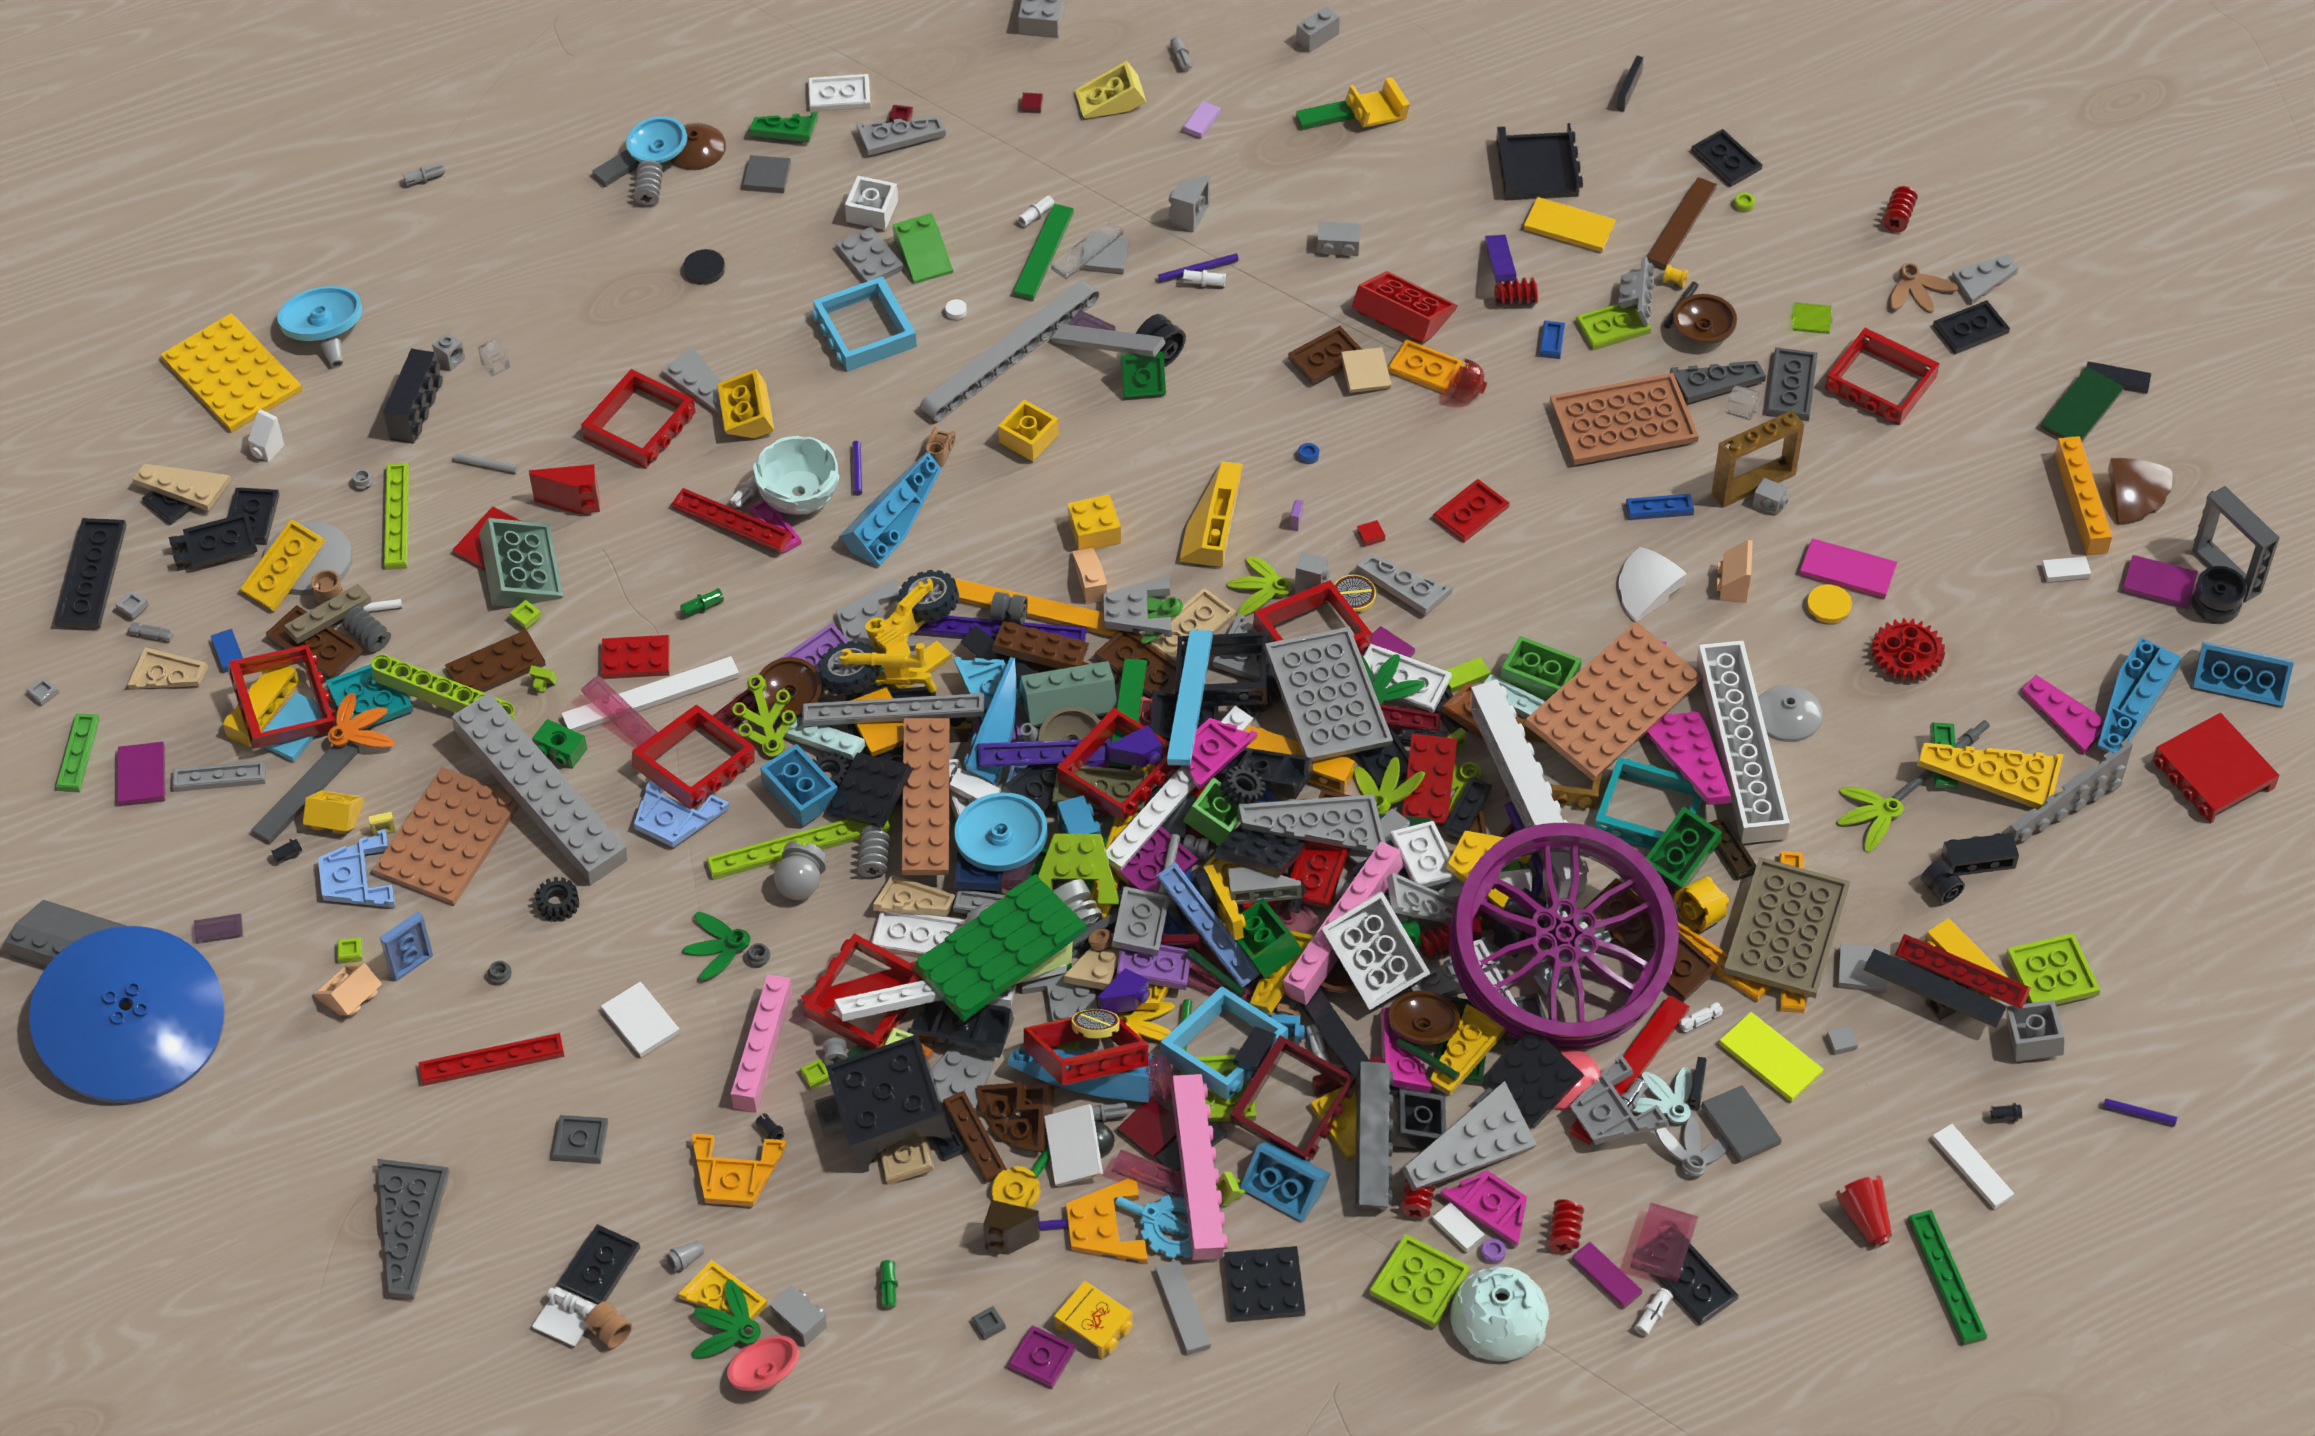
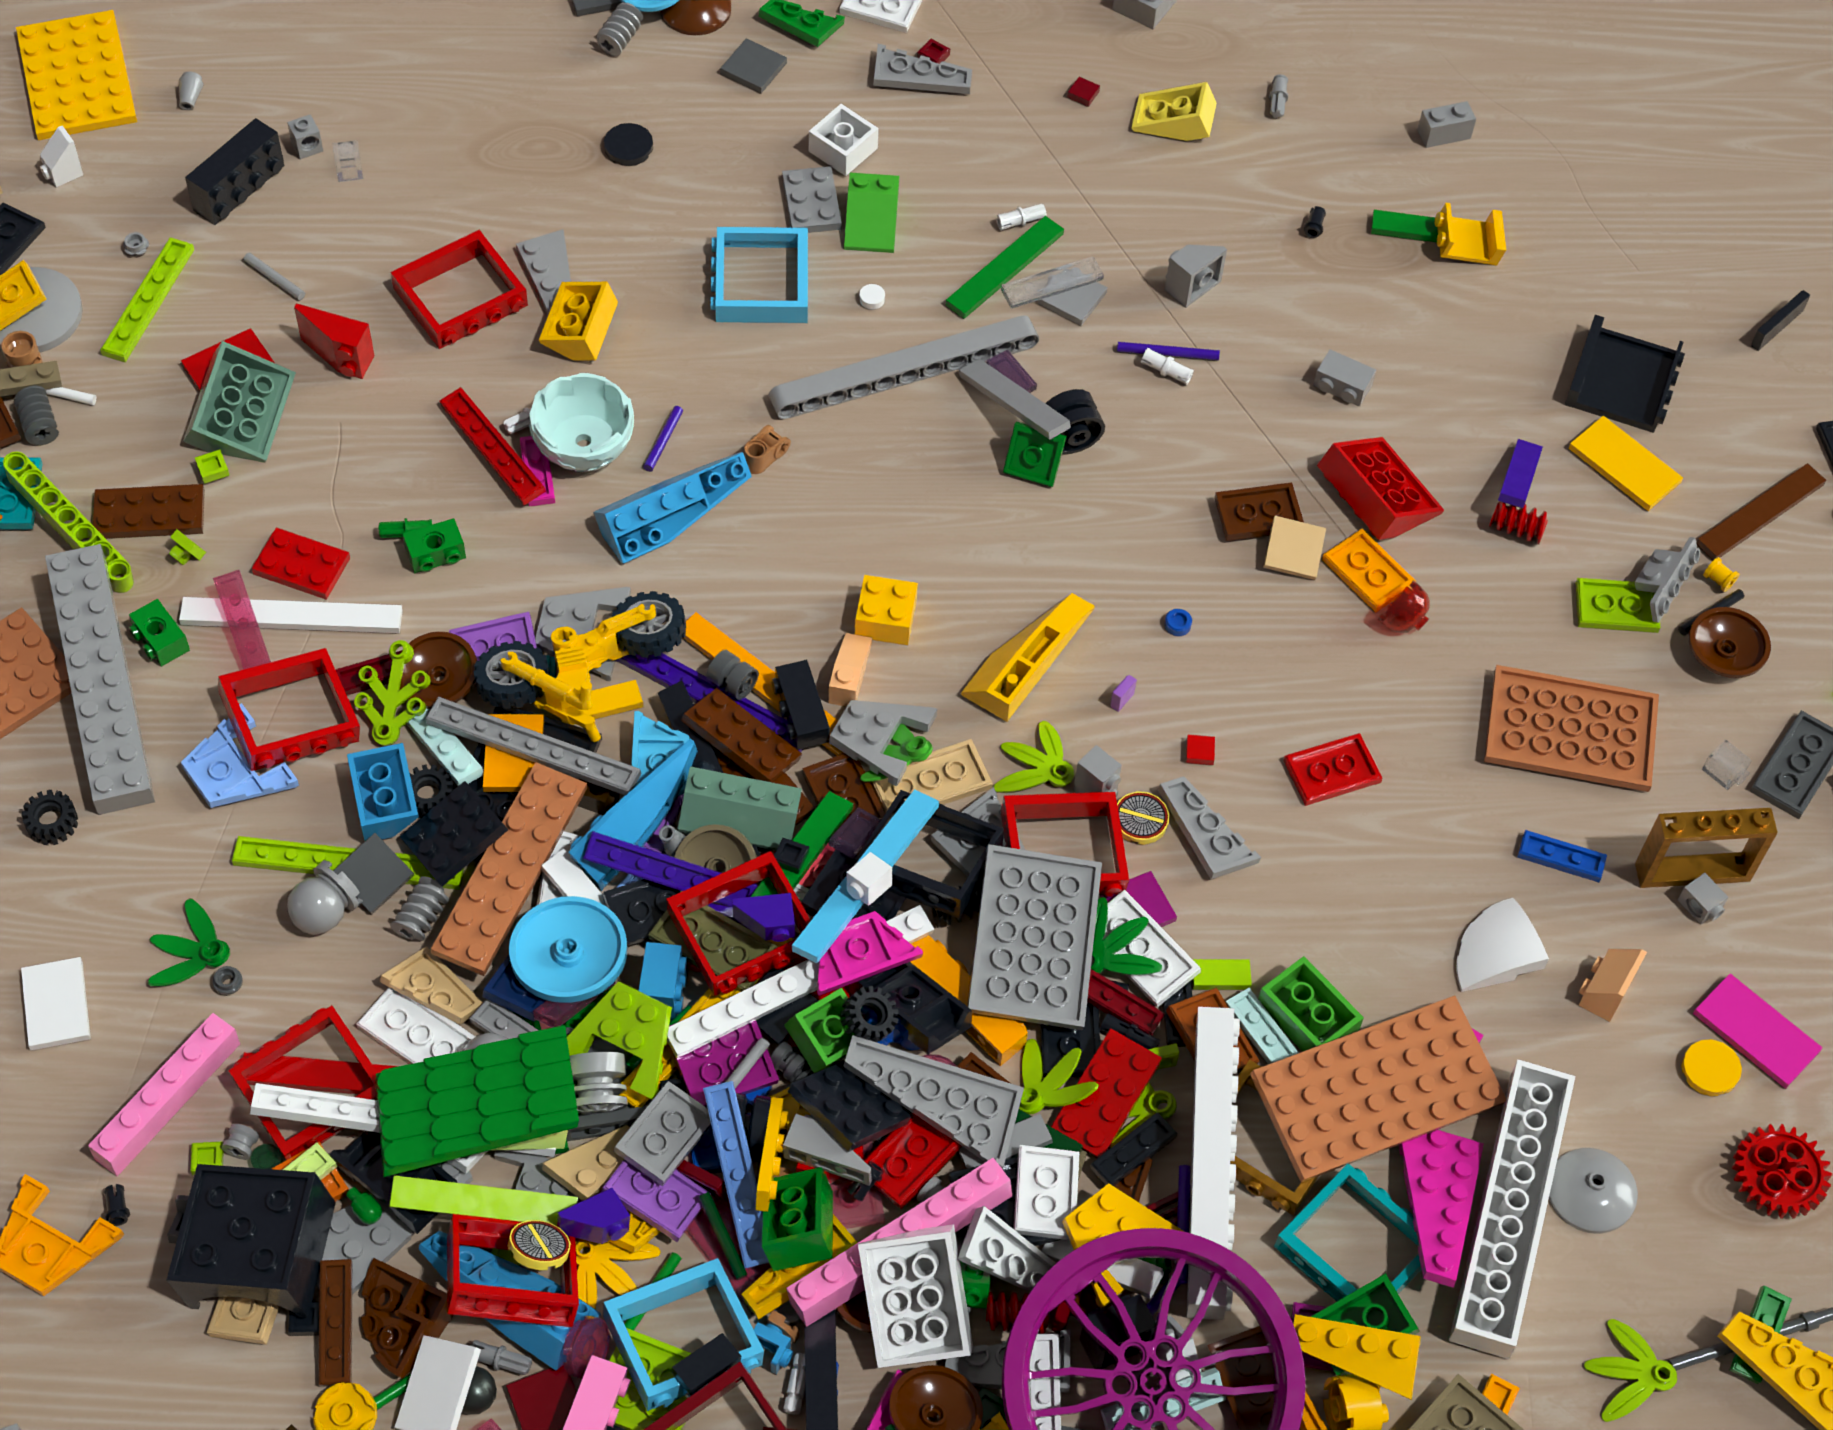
camera: 20 degrees right, 5 degrees up
(320, 313) = (197, 44): medium azure dish -> none
(731, 605) = (421, 545): none -> green brick
(828, 836) = (375, 872): none -> dark grey tile
(953, 1054) = (364, 1206): none -> green cylinder
(1016, 1019) = (477, 1200): none -> lime tile
(1028, 430) = (871, 469): yellow brick -> none
(1071, 609) = (801, 705): none -> black brick
(1100, 939) = (609, 1134): medium nougat tile -> none
(1126, 706) = (791, 855): none -> black tile
(1160, 678) = (854, 832): none -> clear purple tile
(1197, 695) = (869, 879): none -> white brick
(1202, 119) = (1262, 180): lavender tile -> none
(1258, 139) = (1313, 227): none -> black pin
(1552, 339) = (1535, 595): blue tile -> none
(1696, 861) = (1367, 1352): none -> yellow wing
(1710, 381) = (1701, 722): dark grey wing -> none
(1733, 851) = (1434, 1348): dark brown tile -> none

